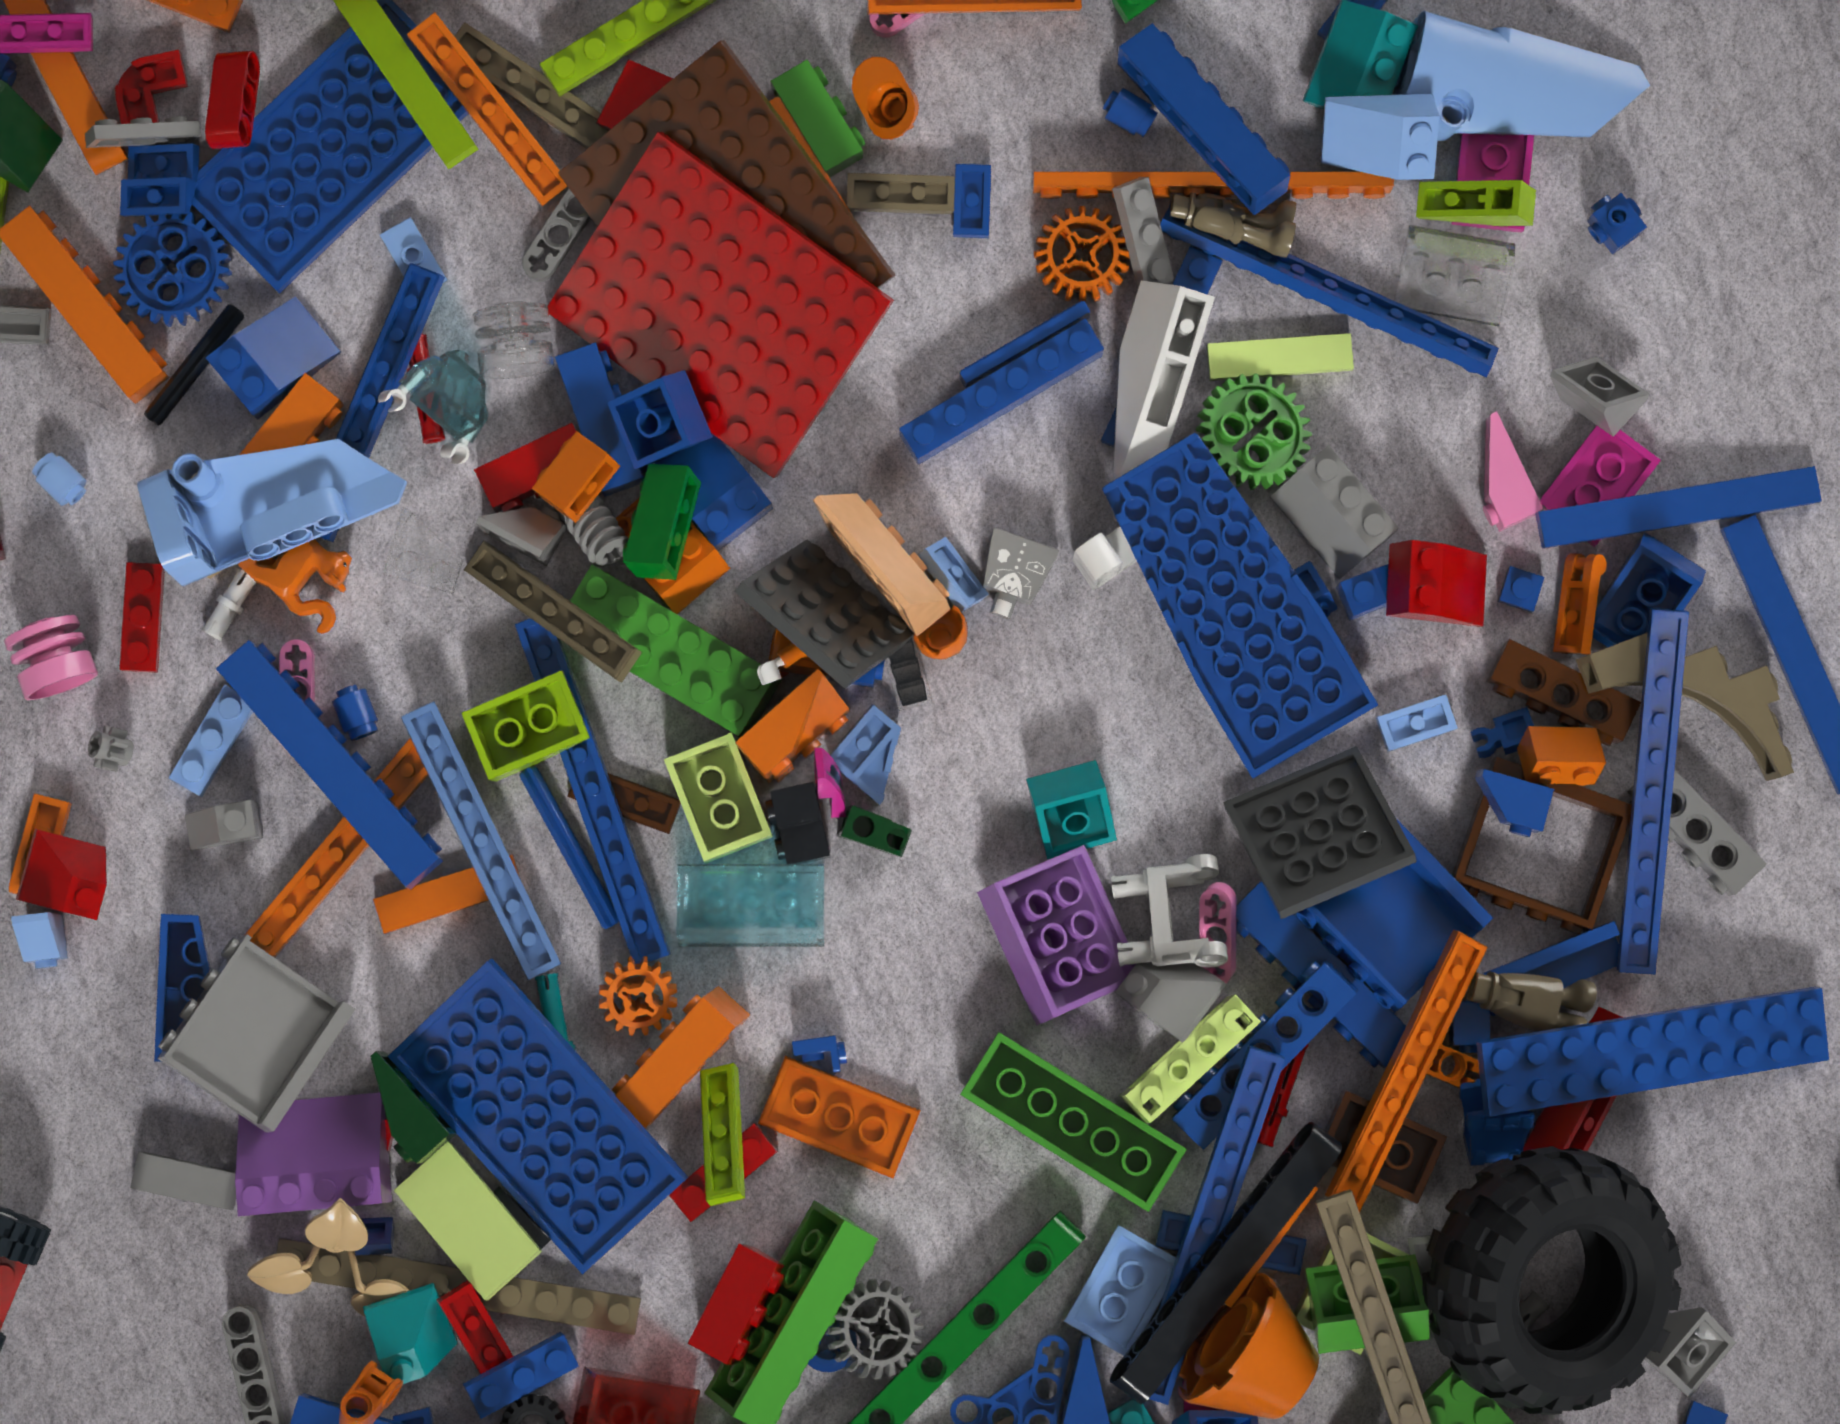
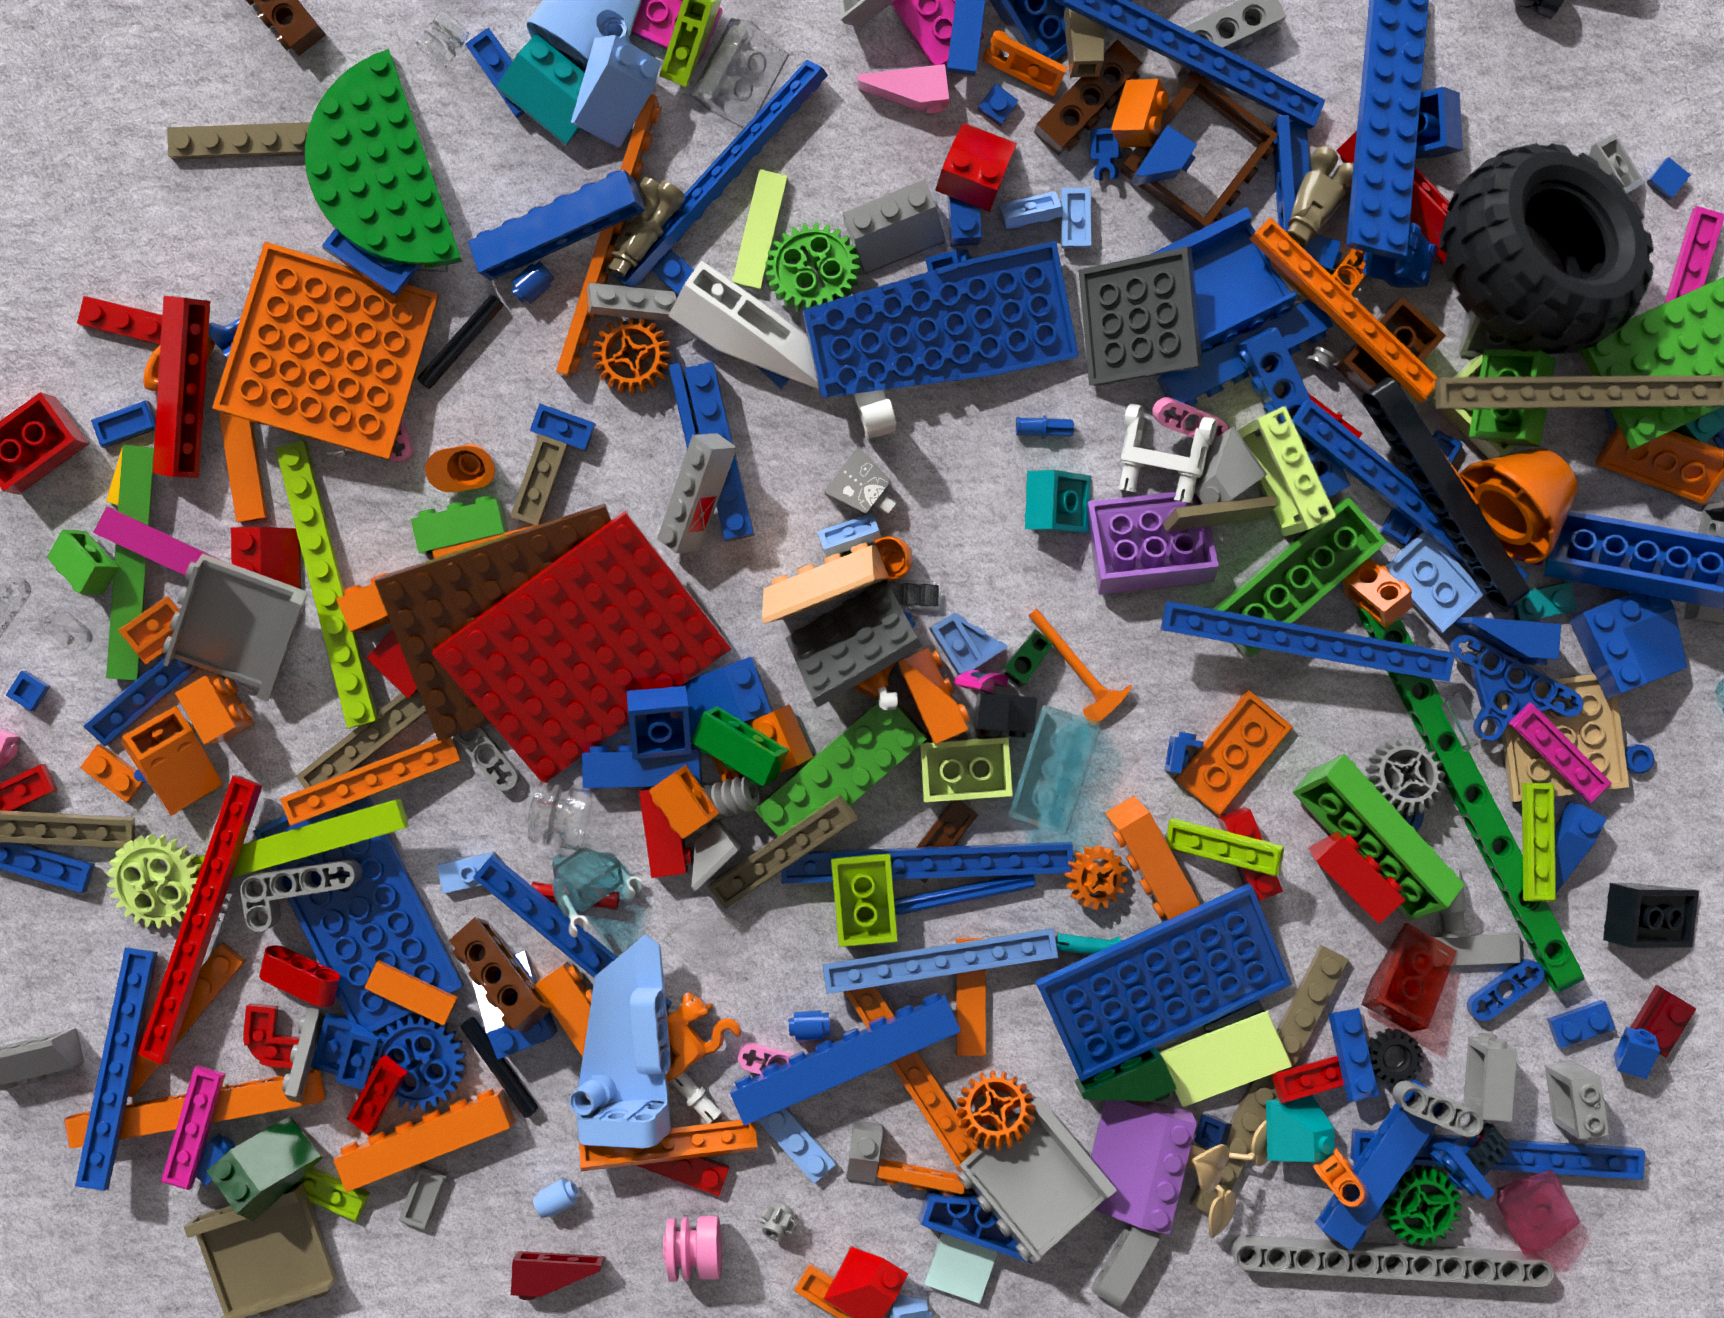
camera: 70 degrees left, 5 degrees up
(119, 232) = (377, 1095): none -> red tile
(121, 985) = (960, 1268): none -> light aqua tile
(165, 595) = (679, 1144): none -> orange plate
(213, 900) = (919, 1177): none -> orange plate
(252, 234) = (411, 992): none -> orange tile
(284, 373) = (530, 1004): none -> reddish brown brick
(341, 68) = (302, 885): none -> light grey beam
(342, 987) = (984, 1115): none -> orange gear
(685, 37) = (363, 608): none -> orange brick
(855, 942) = (1105, 699): none -> orange piece
(942, 377) = (696, 492): none -> light grey brick
(965, 1375) = (1460, 719): none -> clear piece
(998, 1152) = (1307, 641): none -> blue plate
(1034, 51) = (460, 341): none -> black axle
(1085, 1223) = (1374, 596): none -> orange brick
(1118, 1001) = (1219, 513): none -> dark tan tile
(1156, 765) = (1044, 427): none -> blue axle
(1345, 1070) = (1321, 359): none -> light grey bush
(1407, 666) = (1031, 210): none -> light blue plate
(1670, 1117) = (1439, 123): none -> blue slope

